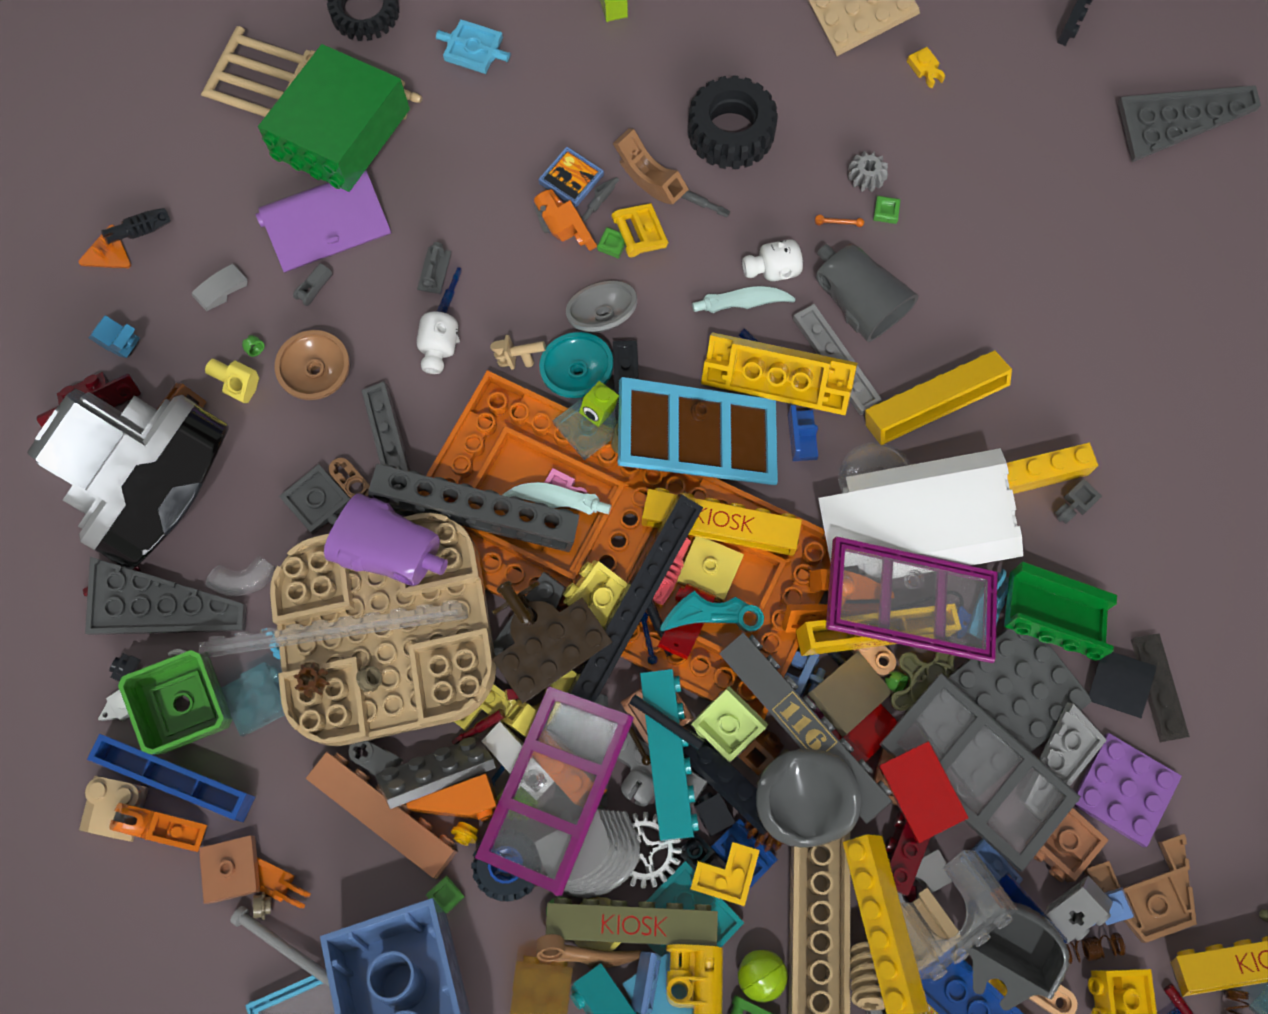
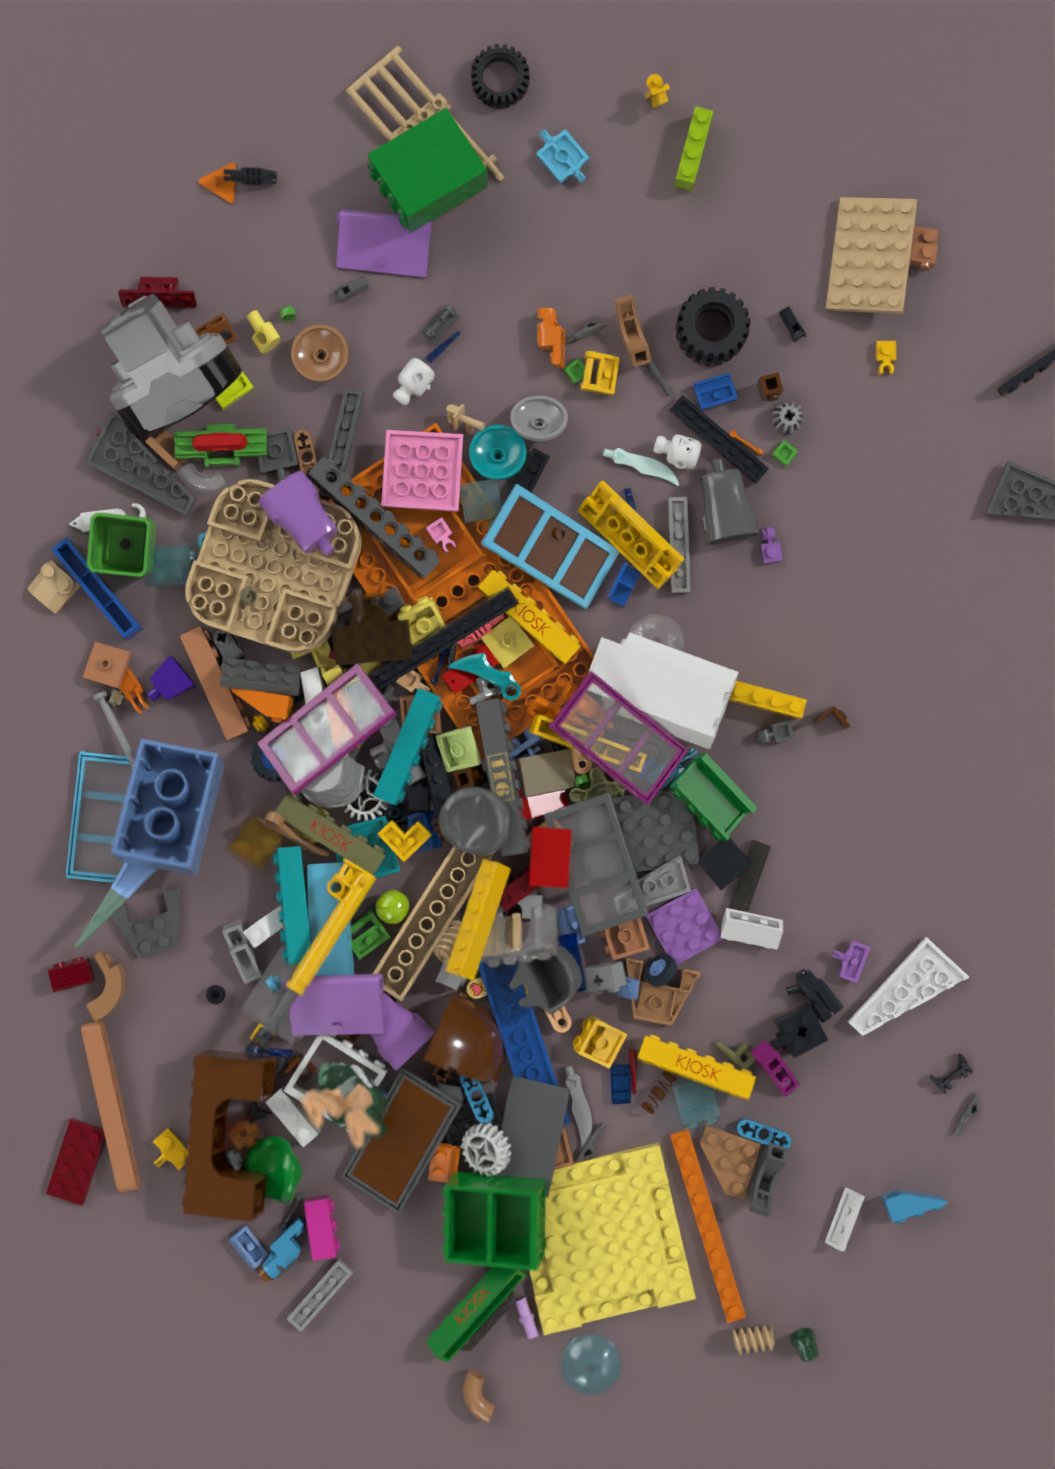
camera: 30 degrees right, 15 degrees up
(114, 337) = (196, 255): dark azure brick -> none
(123, 666) = (100, 501): black slope -> none
(158, 827) = (75, 615): orange plate -> none
(184, 566) = (165, 446): none -> medium nougat panel
(217, 287) = (286, 255): light grey slope -> none
(229, 460) = (234, 391): none -> neon yellow tile
(239, 517) = (221, 437): none -> bright green piece
(308, 673) = (206, 577): reddish brown gear -> none
(321, 844) = (170, 681): none -> dark purple torso
(323, 630) = (249, 553): clear plate -> none
(446, 894) = (230, 753): bright green tile -> none
(481, 725) = (305, 662): dark red piece -> none
(501, 427) = (422, 470): none -> bright pink plate
(557, 496) = (433, 539): light aqua sword -> none
(571, 177) = (576, 303): tile -> none
(598, 403) = (493, 492): lime brick -> none
(623, 677) = (412, 681): none -> light nougat plate
(645, 758) = (398, 711): dark brown hinge -> none
(646, 982) = (321, 872): medium blue slope -> none
(666, 722) = (416, 727): black piece -> none
(722, 639) = (486, 693): none -> light grey piece
(774, 186) = (715, 391): none -> blue plate
(808, 229) = (719, 439): none -> black plate
(814, 85) = (791, 321): none -> black bar
(830, 149) = (770, 387): none -> reddish brown brick
(938, 314) = (771, 551): none -> medium lavender plate
(938, 397) = (729, 610): yellow brick -> none
(1093, 948) = (600, 1003): reddish brown piece -> none
(1131, 445) = (839, 715): none -> reddish brown bracket
(1138, 859) = (660, 970): none -> black wheel
(1207, 743) = (751, 928): none -> white brick

